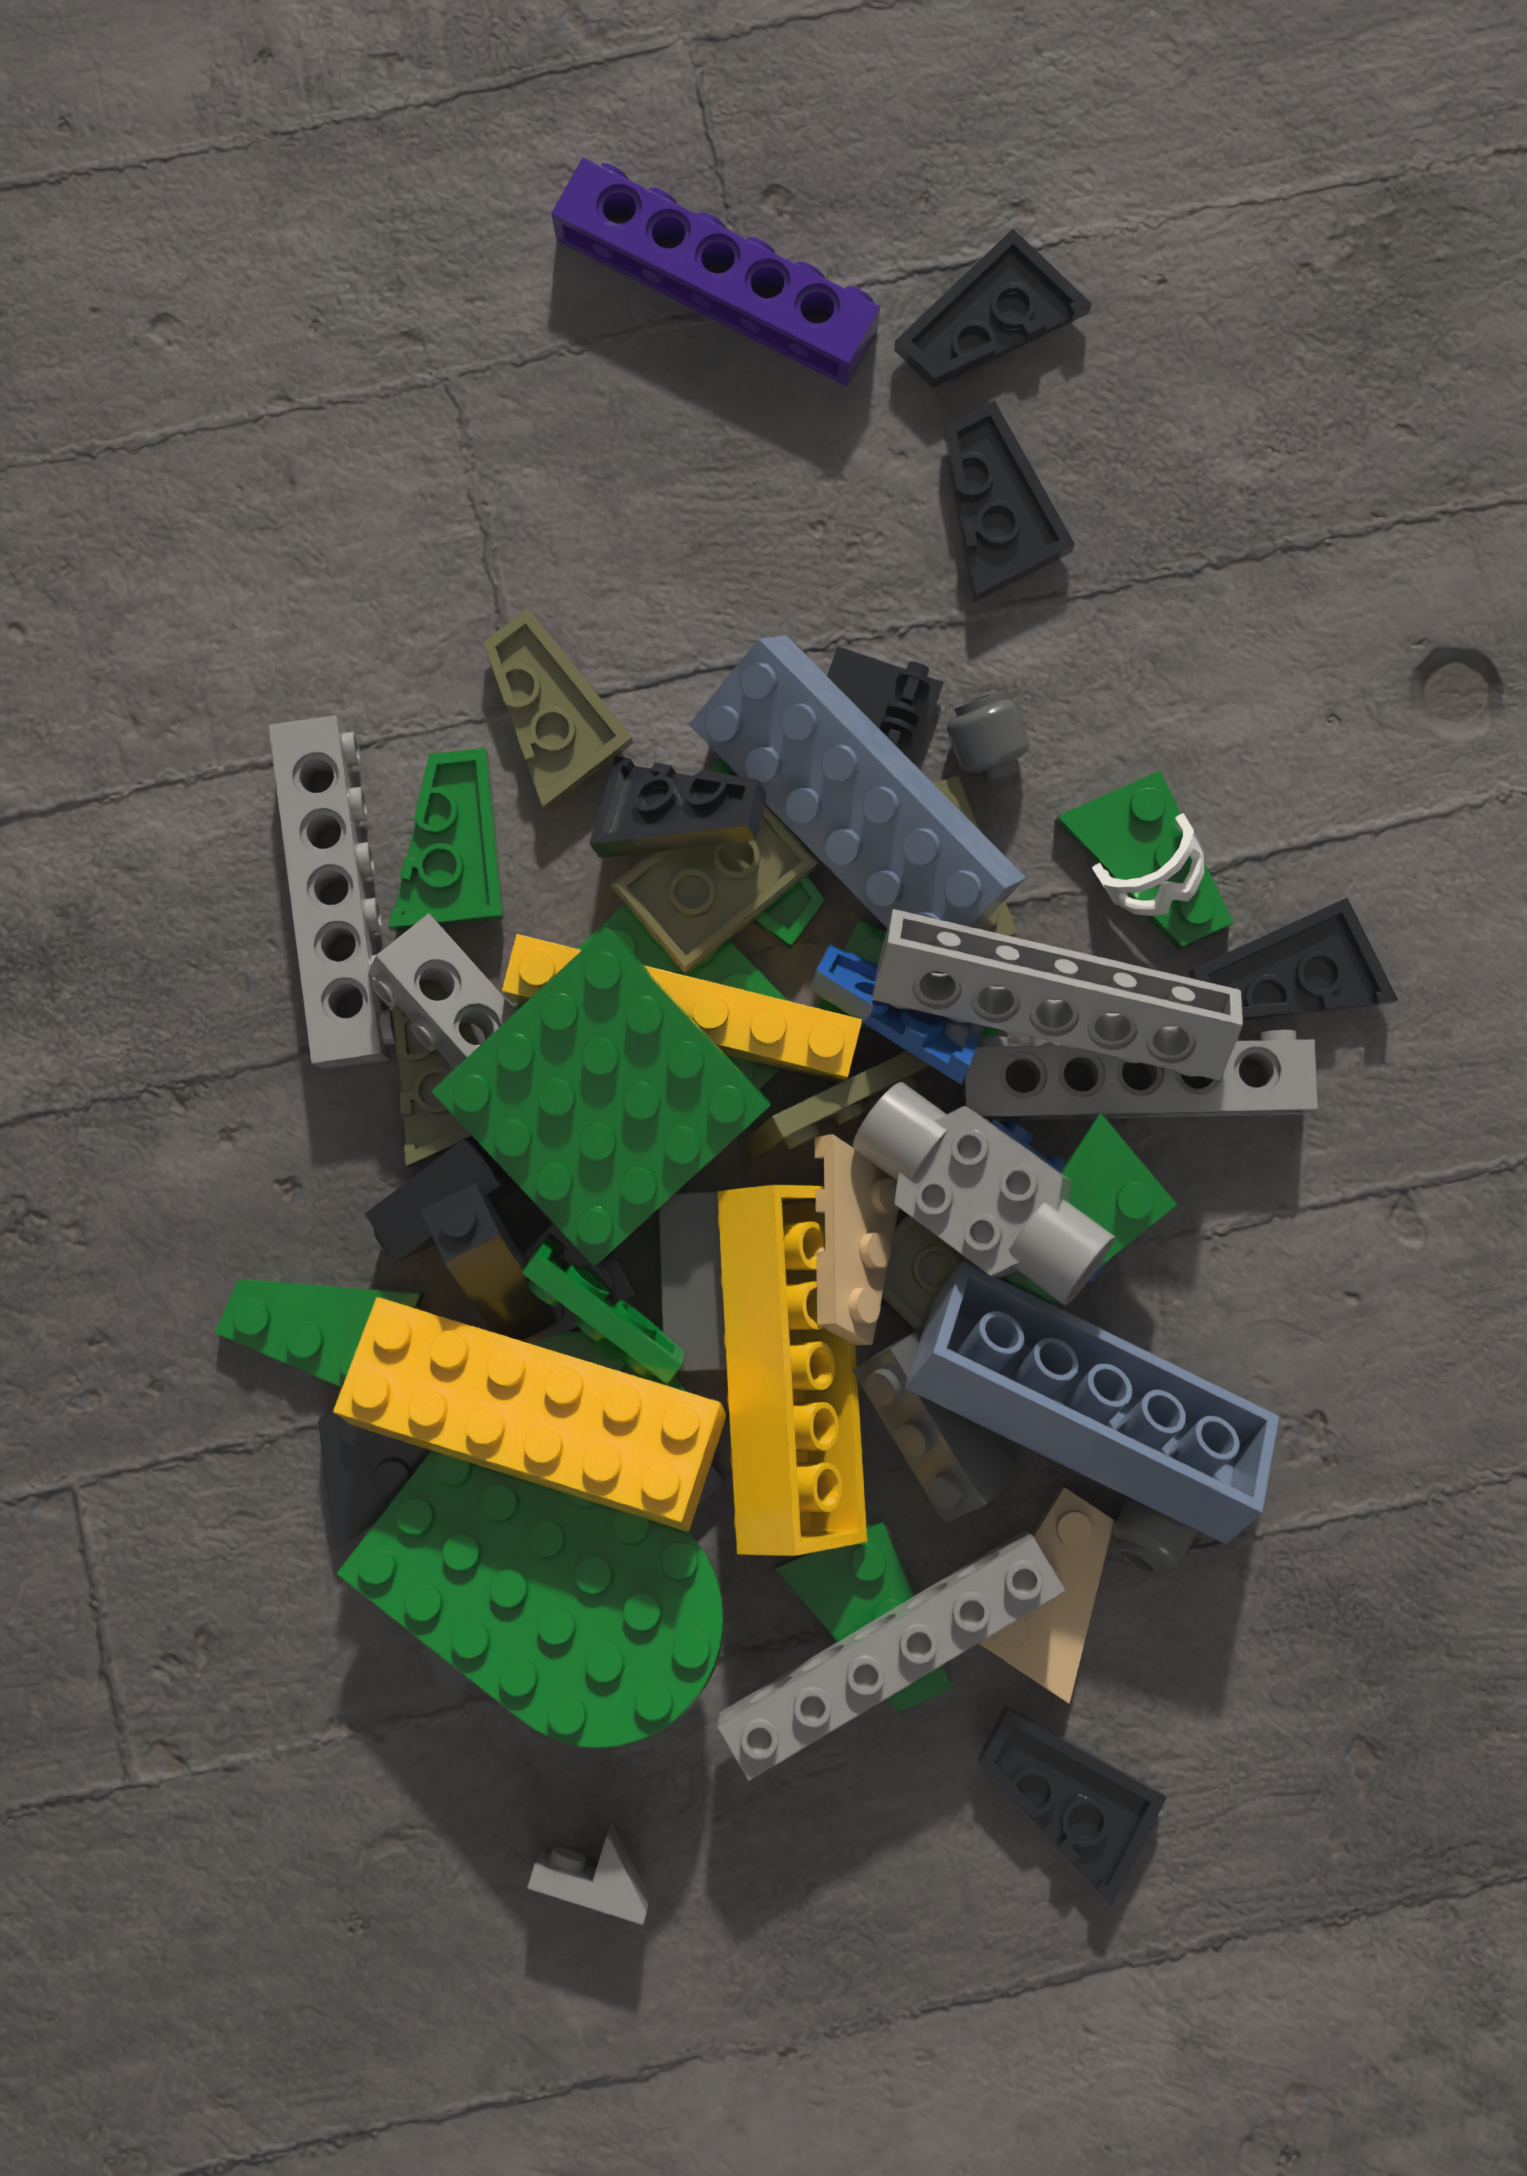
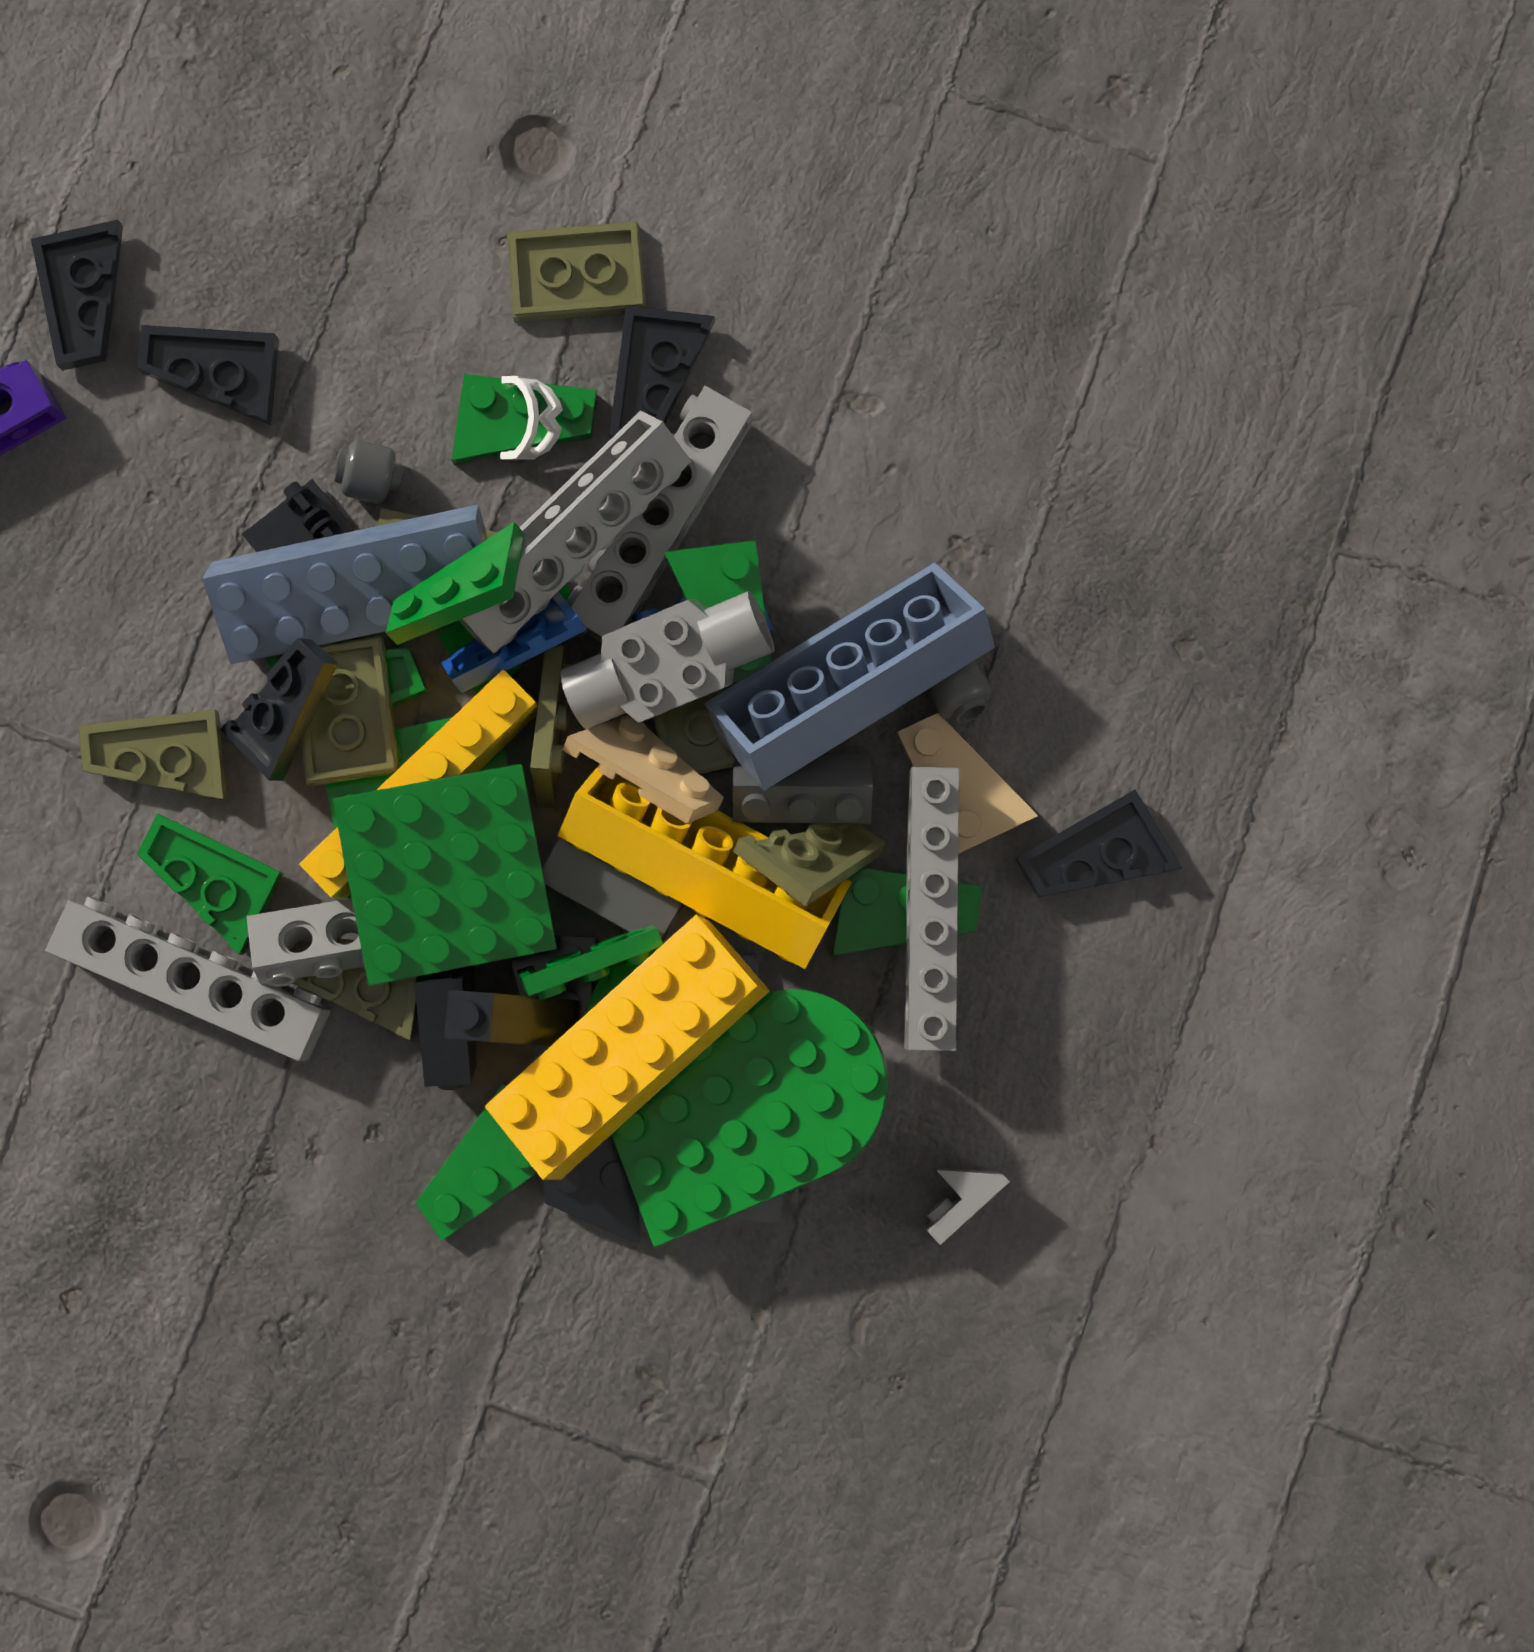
camera: 60 degrees left, 0 degrees up
(861, 1486) = (812, 860): none -> olive wing
(920, 923) = (460, 589): none -> green wing
(1350, 818) = (575, 271): none -> olive tile

